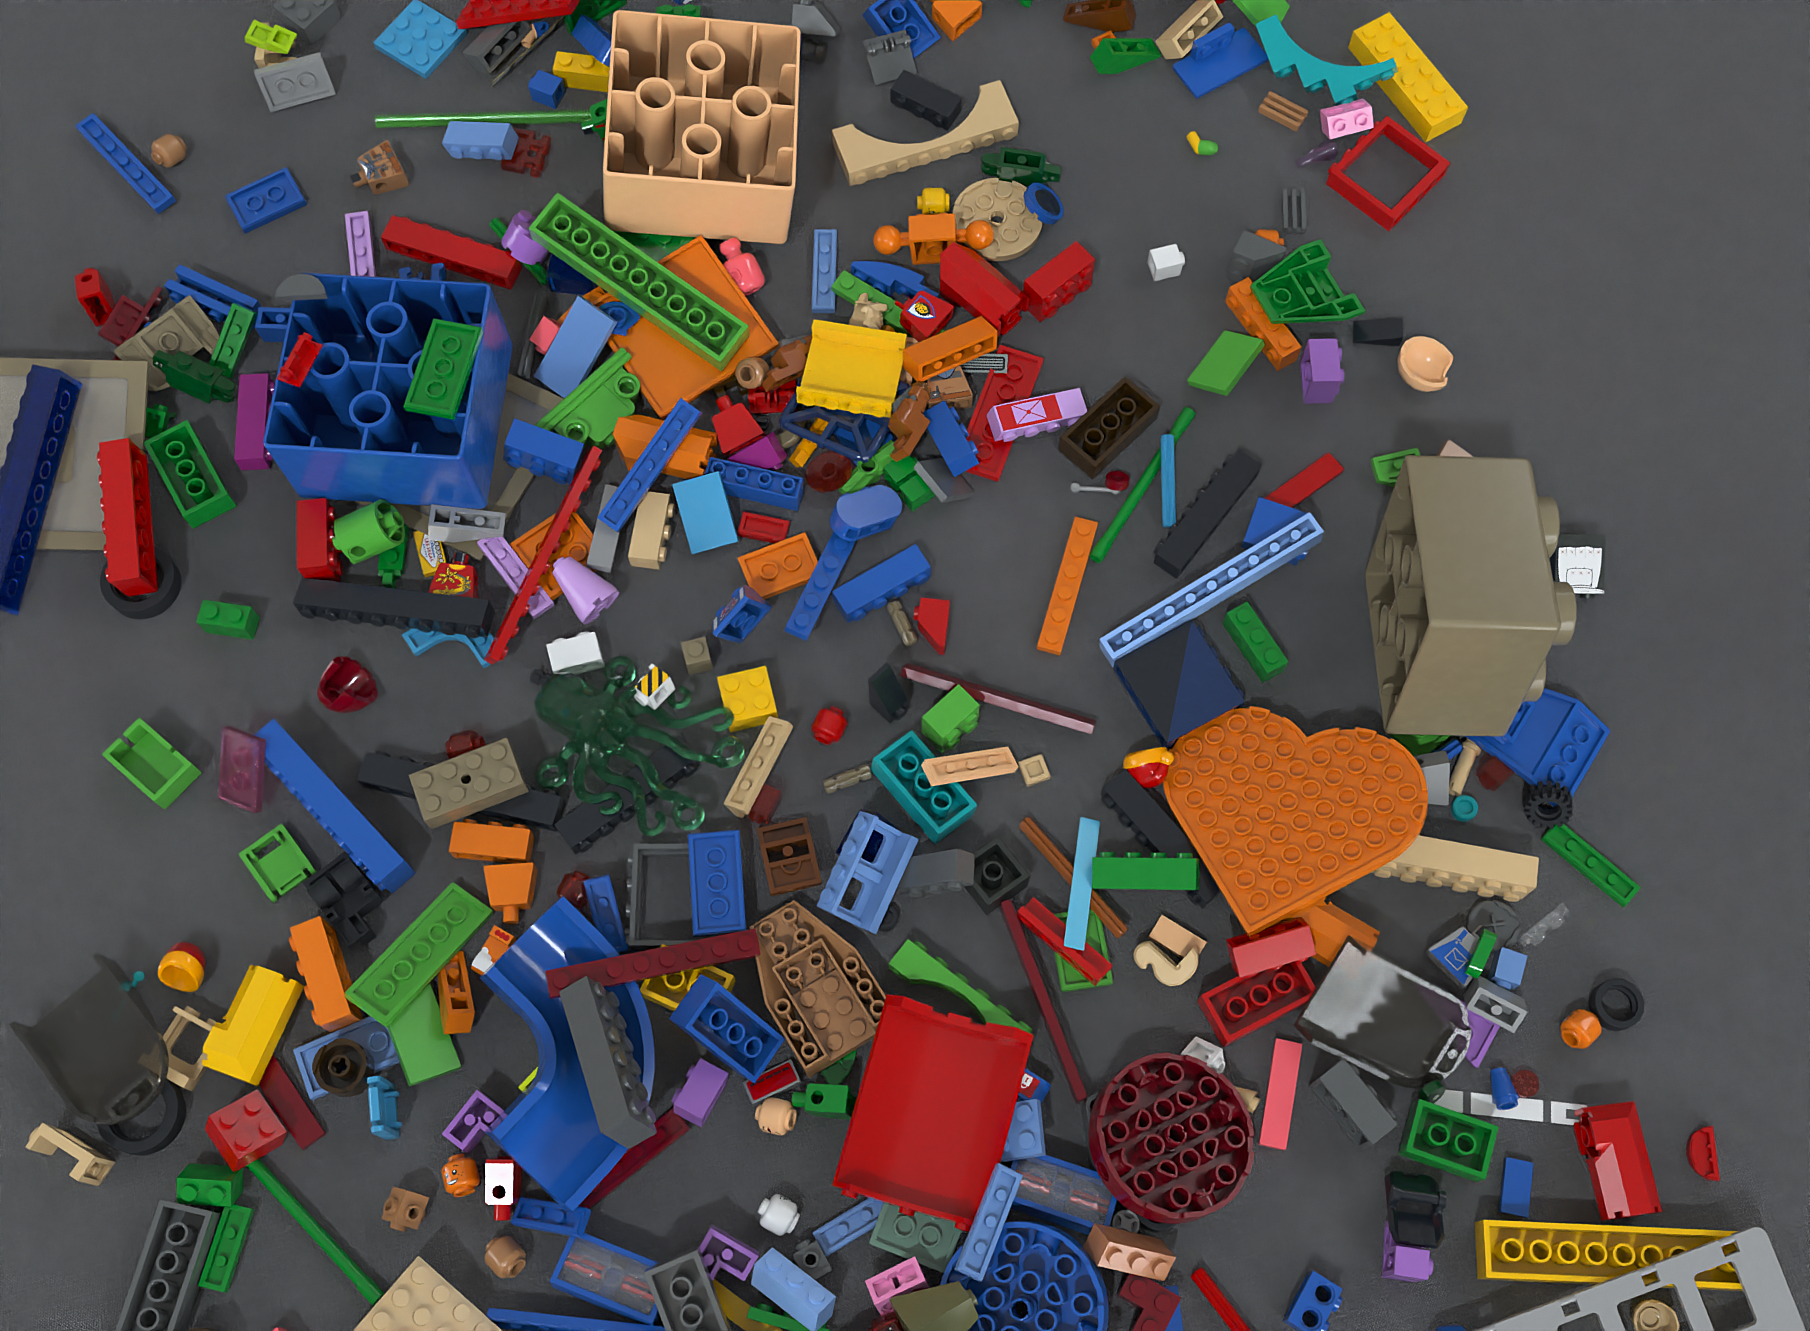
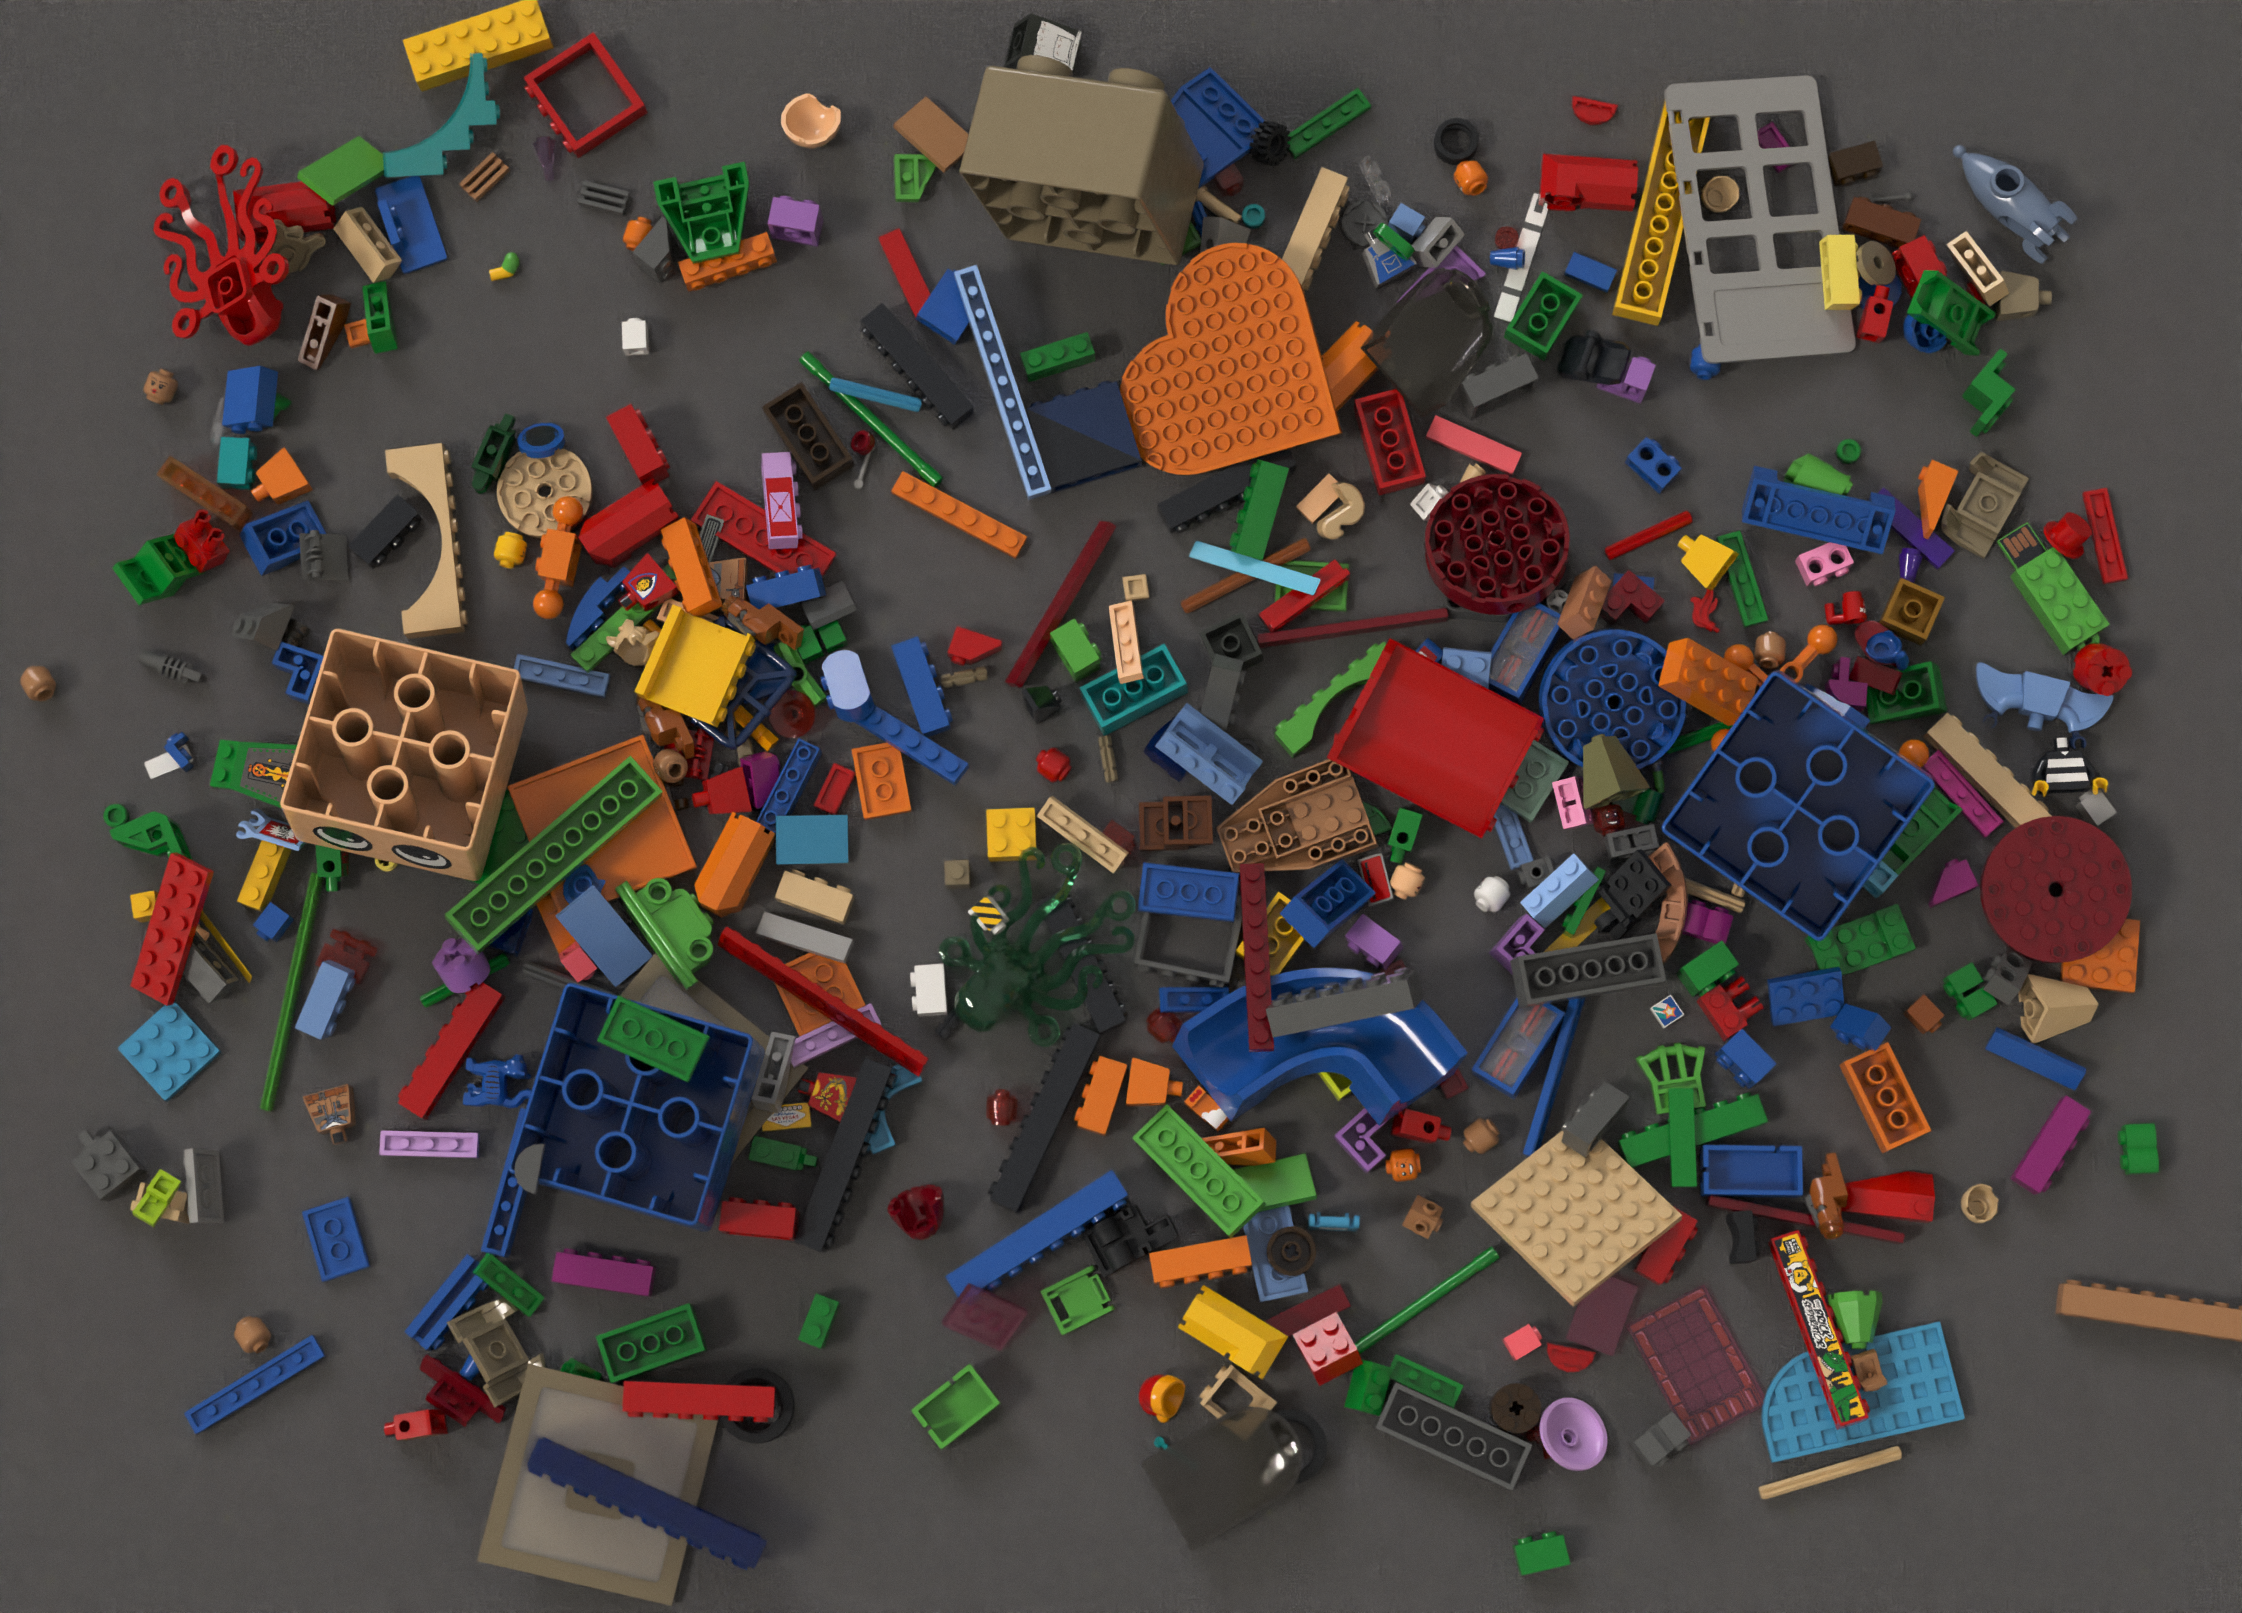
camera: 75 degrees left, 10 degrees up
(92, 1164) = (1326, 1488): tan window -> none
(194, 377) = (543, 1327): dark green hinge -> none
(299, 360) = (613, 1177): red hinge -> none
(369, 531) = (762, 1165): bright green cylinder -> none
(444, 788) = (1051, 1126): dark tan brick -> none
(542, 452) = (715, 983): blue brick -> none
(550, 1217) = (1456, 1091): blue tile -> none
(583, 589) = (868, 968): lavender cone -> none
(593, 38) = (245, 852): blue beam -> none
(649, 465) = (759, 879): blue plate -> none
(740, 615) = (928, 825): blue slope -> none
(742, 267) = (546, 754): coral piece -> none
(988, 1222) = (1540, 710): medium blue tile -> none
(1149, 766) = (1156, 482): piece -> none
(1226, 362) = (762, 308): bright green tile -> none
(1271, 947) = (1355, 416): brick -> none
(1346, 118) = (516, 117): bright pink brick -> none
(1378, 331) = (760, 153): black slope -> none
(1432, 1091) = (1499, 318): dark green tile -> none

